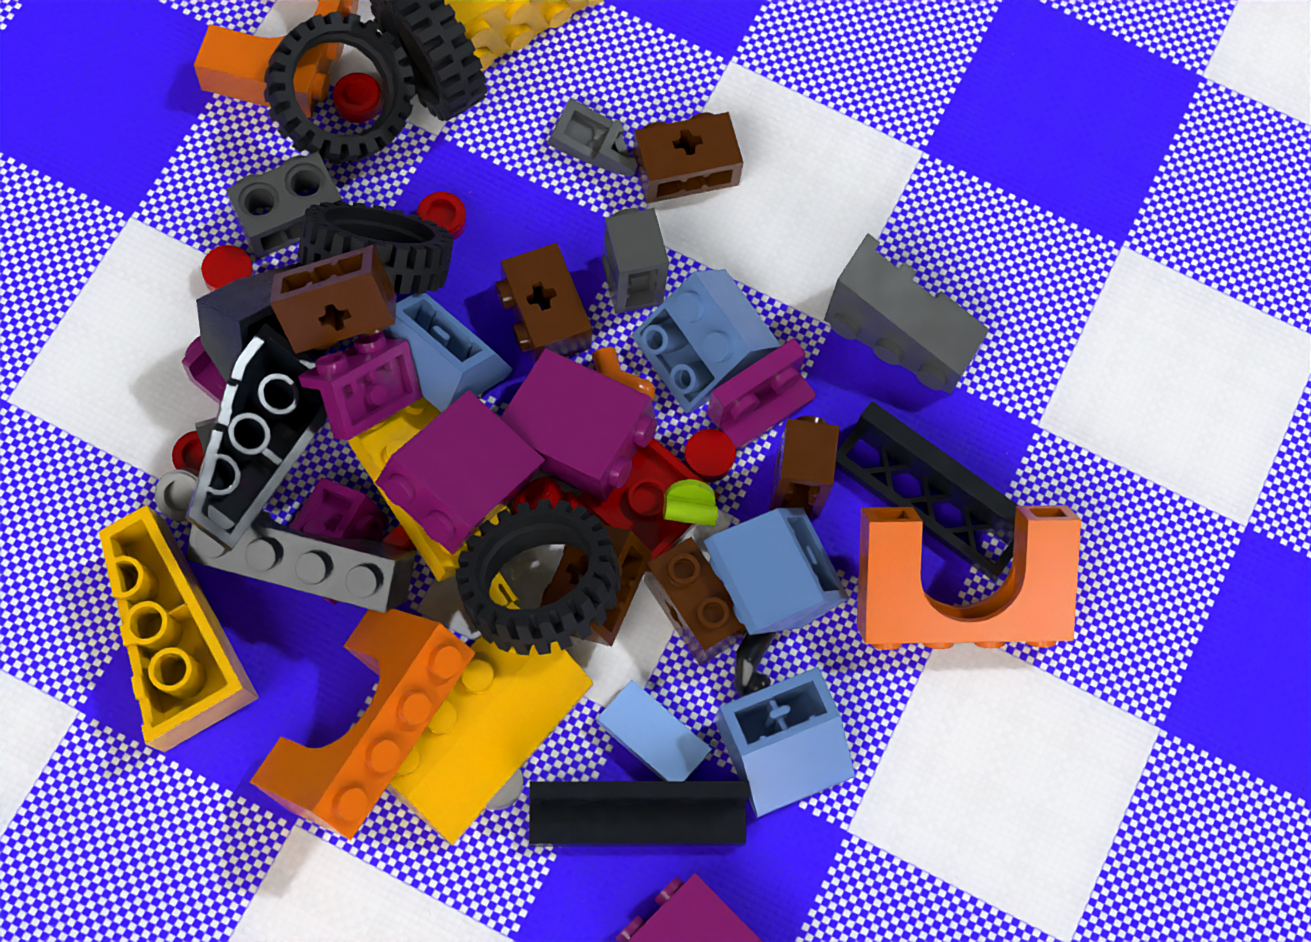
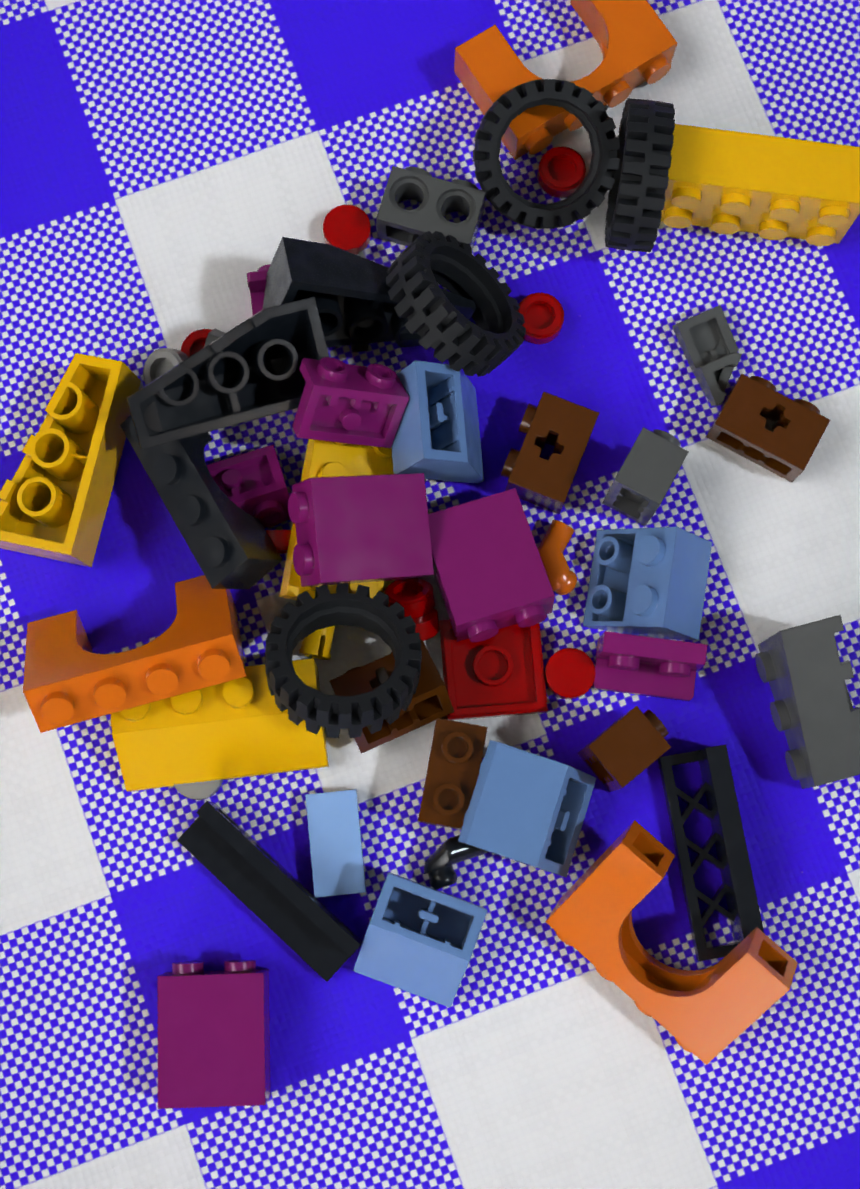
camera: 50 degrees right, 10 degrees up
(334, 299) = (375, 321): reddish brown brick -> none
(690, 503) = (513, 700): lime plate -> none

